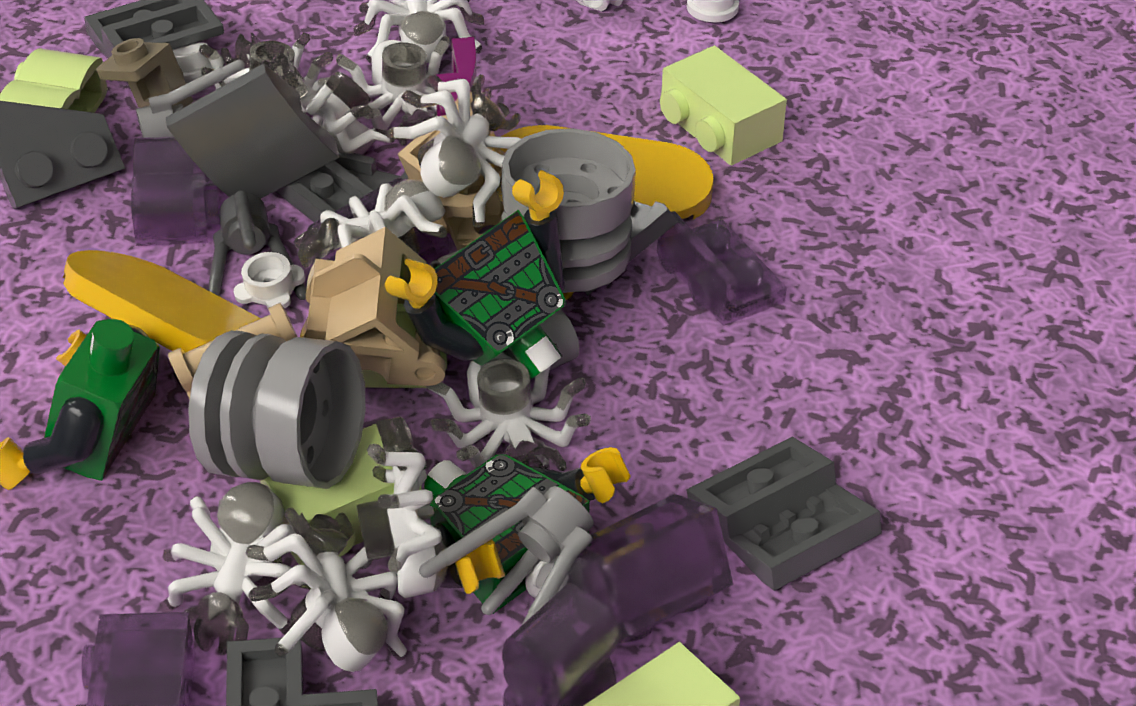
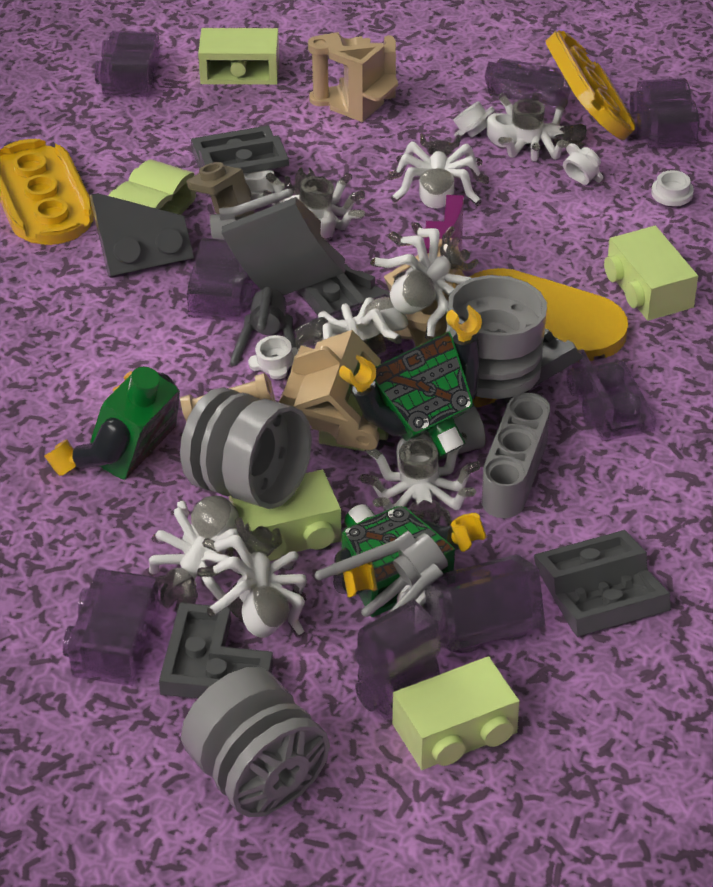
camera: 15 degrees right, 0 degrees up
(151, 298) = (185, 355): yellow tile -> none
(333, 106) = (353, 231): animal -> none
(395, 69) = (408, 207): animal -> none
(395, 522) = (308, 539): animal -> none
(624, 362) = (515, 455): none -> light grey beam

